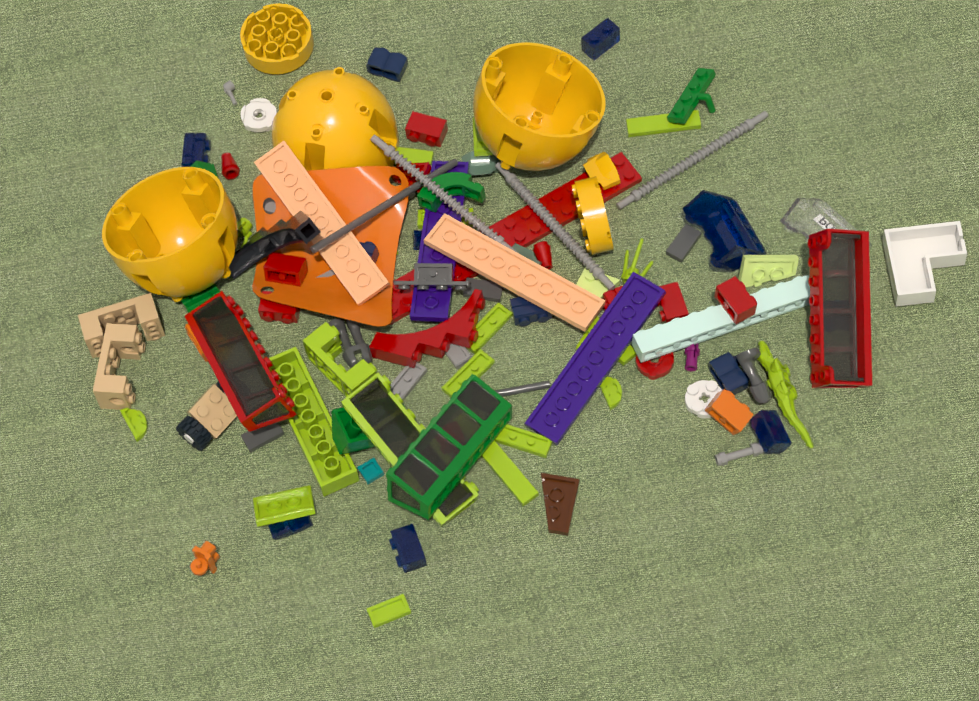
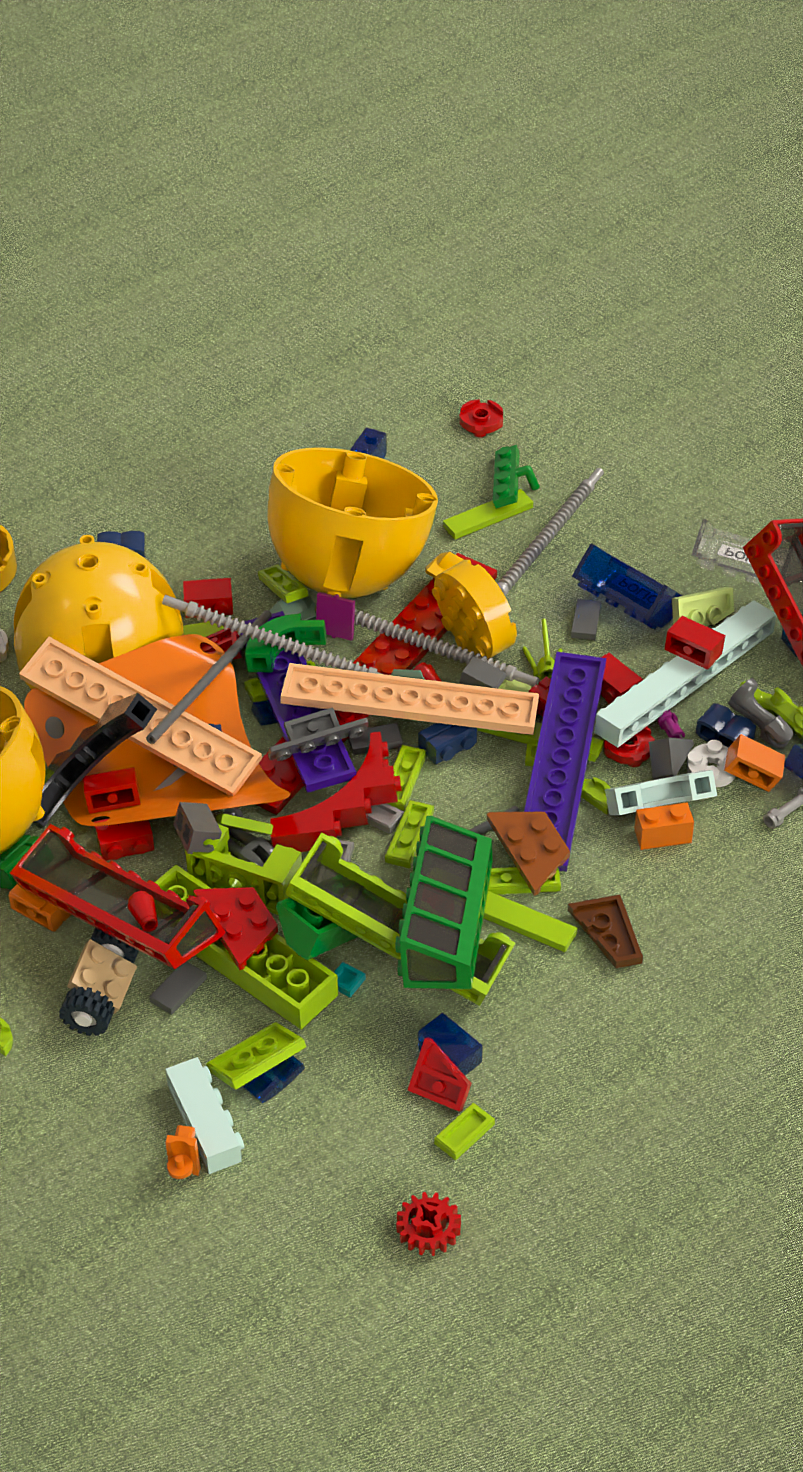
camera: 30 degrees left, 15 degrees down
(233, 534) = (203, 1110): none -> light aqua brick
(249, 380) = (143, 909): none -> red cone
(313, 406) = (243, 918): none -> red wing
(315, 326) = (195, 825): none -> dark grey hinge
(339, 666) = (427, 1225): none -> red gear
(354, 331) = (244, 824): none -> lime tile
(388, 568) = (439, 1078): none -> red wing
(502, 179) = (337, 614): none -> magenta piece
(538, 418) = (531, 844): none -> dark orange wing
(575, 270) = (482, 674): none -> dark grey slope
(639, 437) = (664, 826): none -> orange brick
(668, 412) = (661, 792): none -> light aqua arch
(673, 382) = (668, 756): none -> dark grey slope
(704, 41) = (481, 417): none -> red plate

